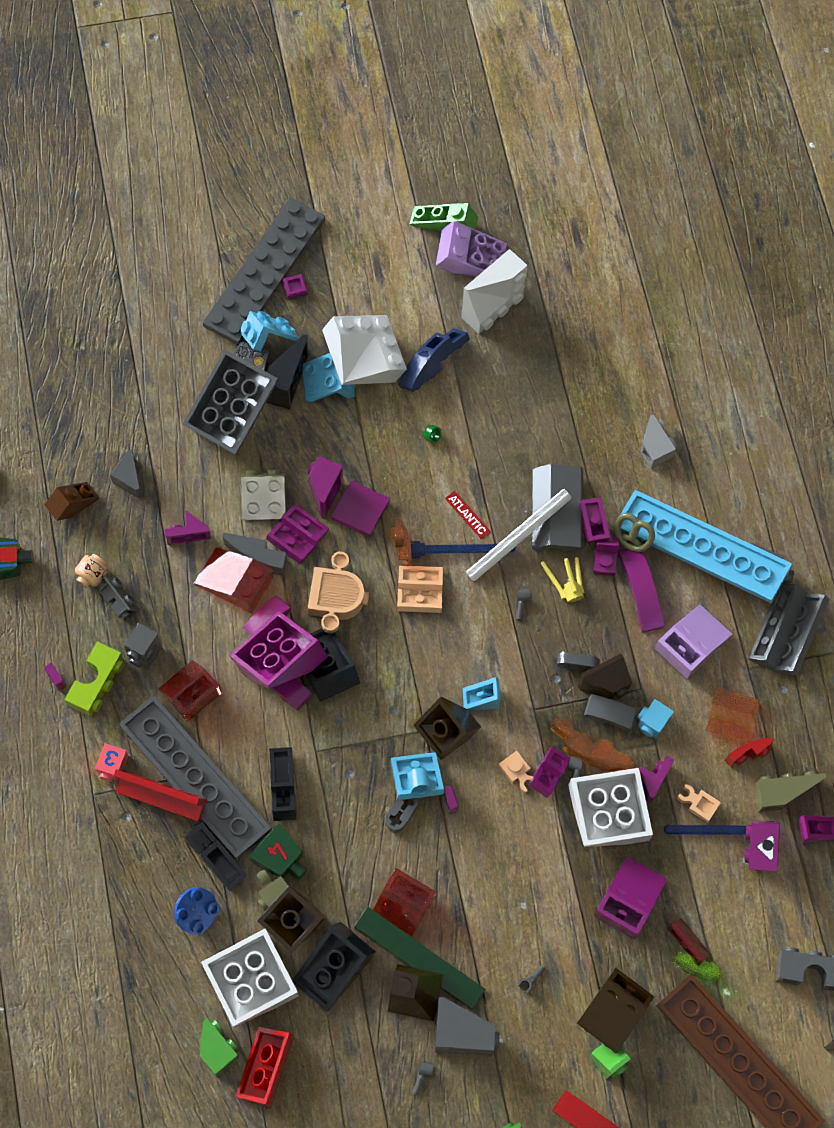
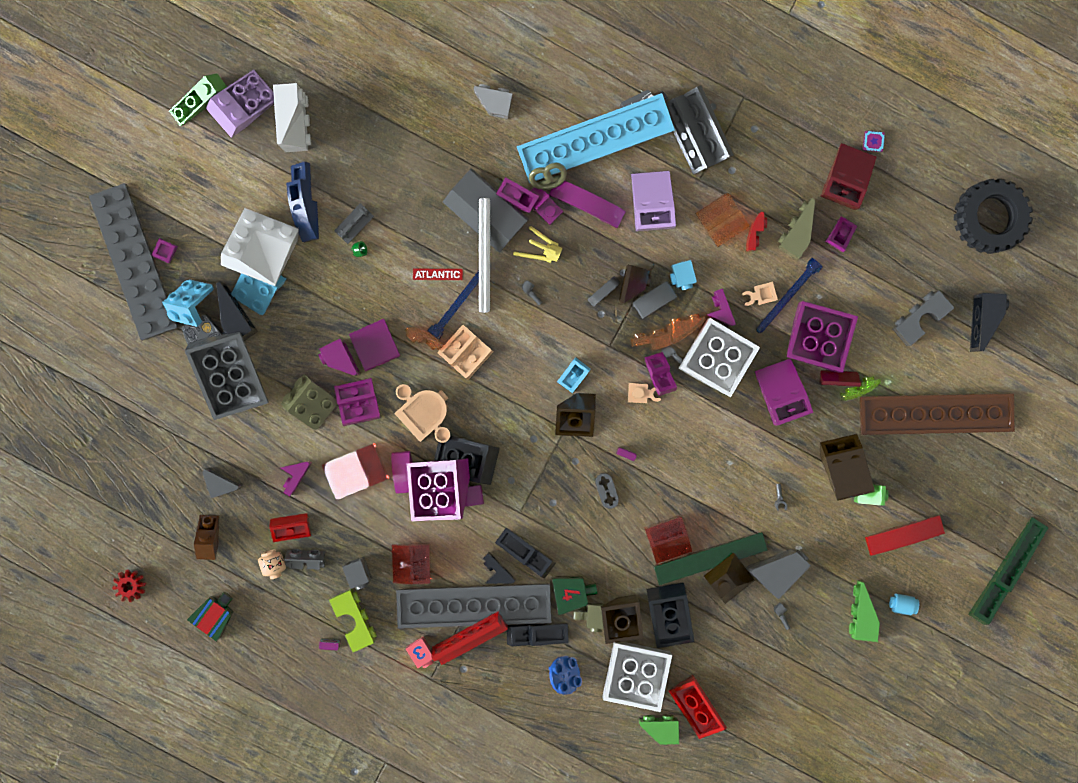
camera: 45 degrees left, 20 degrees up
(136, 564) = (290, 527): none -> red slope
(244, 776) = (502, 575): none -> black slope
(257, 550) = (350, 442): dark grey slope -> none
(417, 776) = (593, 463): medium azure plate -> none
(450, 413) = (354, 223): none -> dark grey hinge
(712, 887) = (821, 336): none -> magenta slope
(763, 845) = (823, 280): magenta brick -> none

